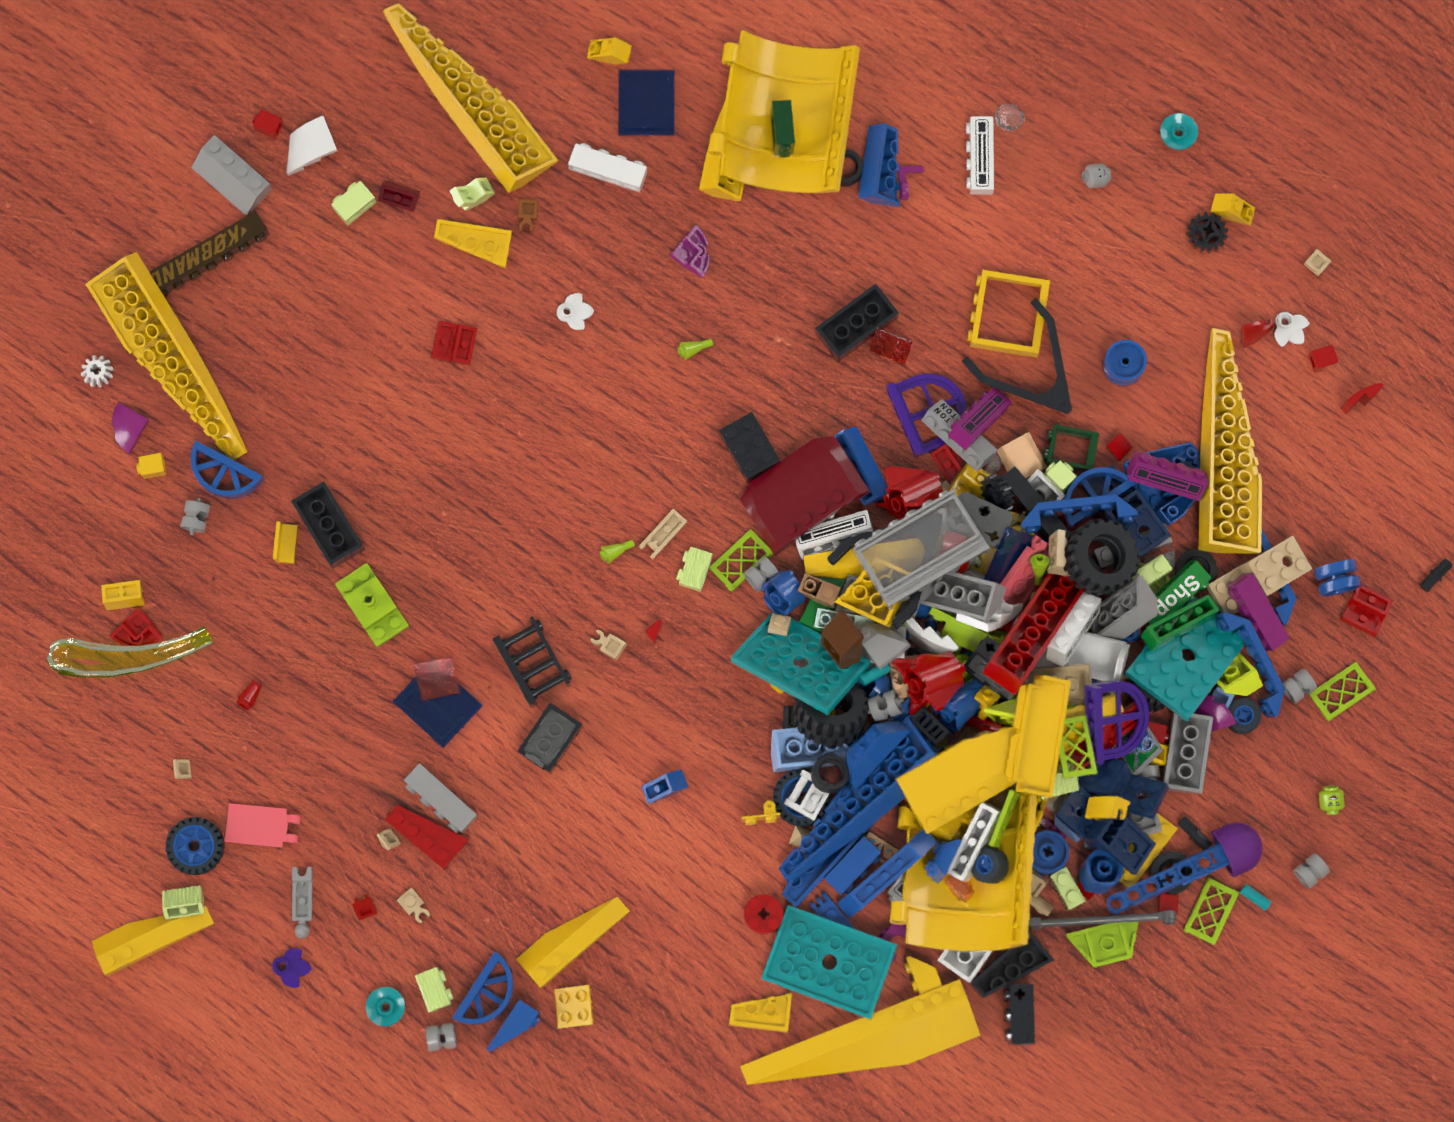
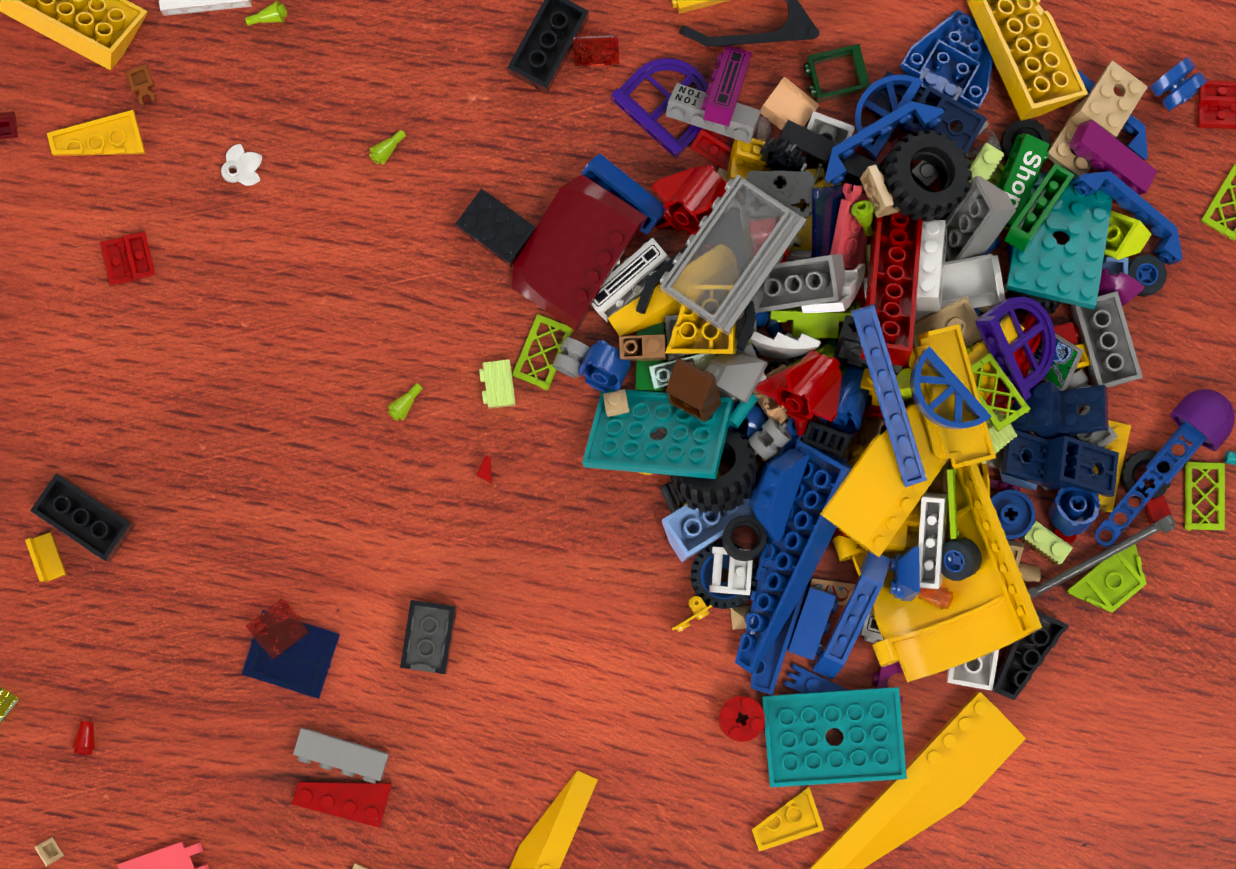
camera: 30 degrees left, 5 degrees up
(372, 605) = (170, 581): lime brick -> none
(388, 839) = (306, 823): tan slope -> none
(473, 194) = (72, 88): yellowish green brick -> none
(513, 661) = (369, 584): black fence -> none
(610, 646) = (447, 507): tan plate -> none
(653, 205) = (272, 14): none -> lime cone
(664, 532) = (447, 360): tan hinge -> none
(664, 786) = (574, 630): blue slope -> none
(692, 252) = (337, 45): magenta brick -> none
(924, 975) = (939, 704): yellow slope -> none
(989, 710) = (889, 395): none -> blue tile
(1020, 1015) = (1059, 699): black piece -> none
(1046, 732) = (954, 385): none -> blue window
(1060, 475) = (840, 107): yellowish green brick -> none
(1106, 807) = (1054, 441): yellow hinge -> none
(1119, 447) = (885, 49): red slope -> none
(1167, 475) = (953, 56): magenta brick -> none
(1194, 833) = (1151, 422): black axle -> none
(1299, 685) = (1189, 215): light grey wheel -> none

